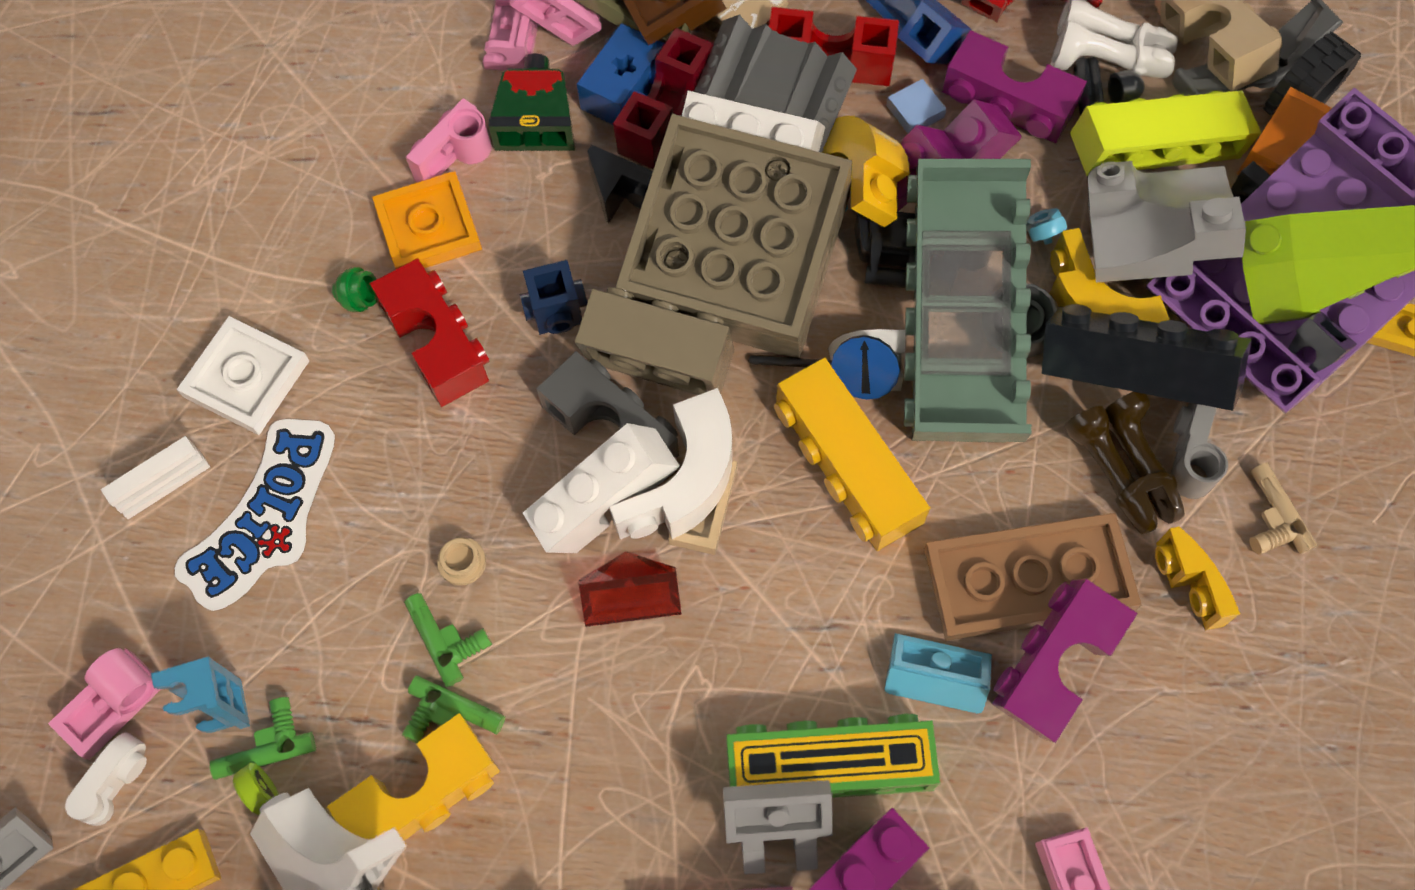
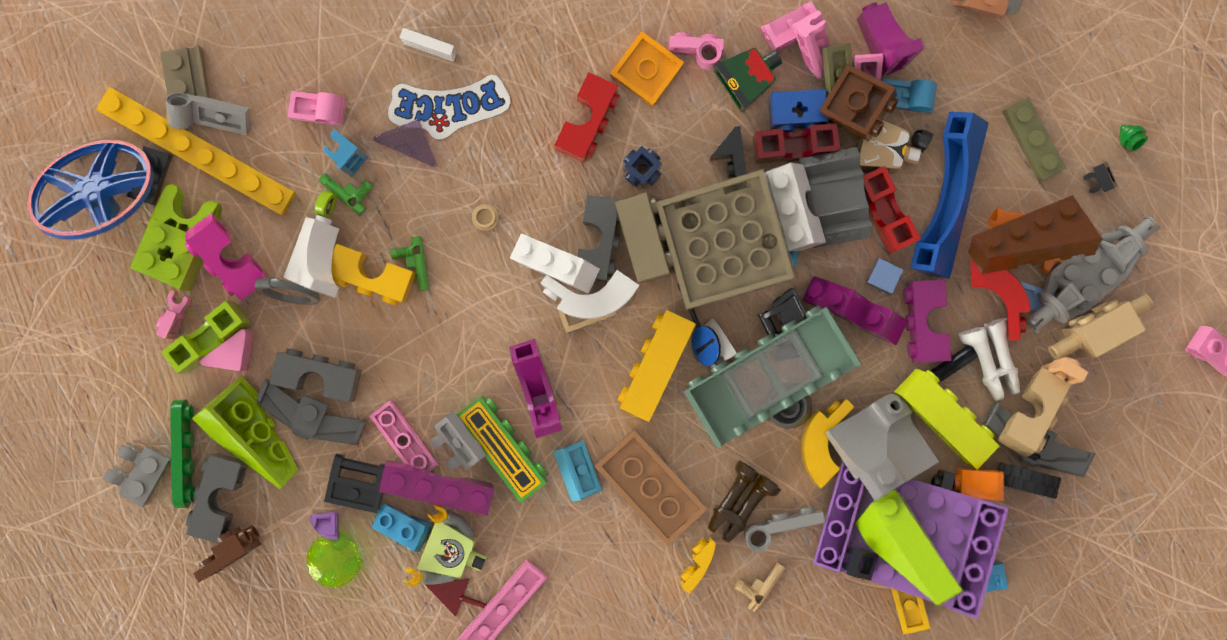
camera: 55 degrees right, 20 degrees up
(116, 765) = (296, 136): white plate -> none
(243, 375) = (505, 43): white plate -> none
(265, 599) = (409, 140): none -> tile
(354, 290) = (585, 62): green plate -> none
(445, 640) = (444, 237): bright green hose -> none
(629, 590) = (522, 304): clear red slope -> none
(769, 645) = (536, 388): none -> magenta arch
(876, 166) = (819, 282): yellow arch -> none
(1033, 689) = (637, 522): magenta arch -> none
(1045, 225) = (847, 388): medium azure piece -> none
(1125, 86) = (969, 381): black hinge -> none
(1146, 356) = (794, 480): black brick -> none

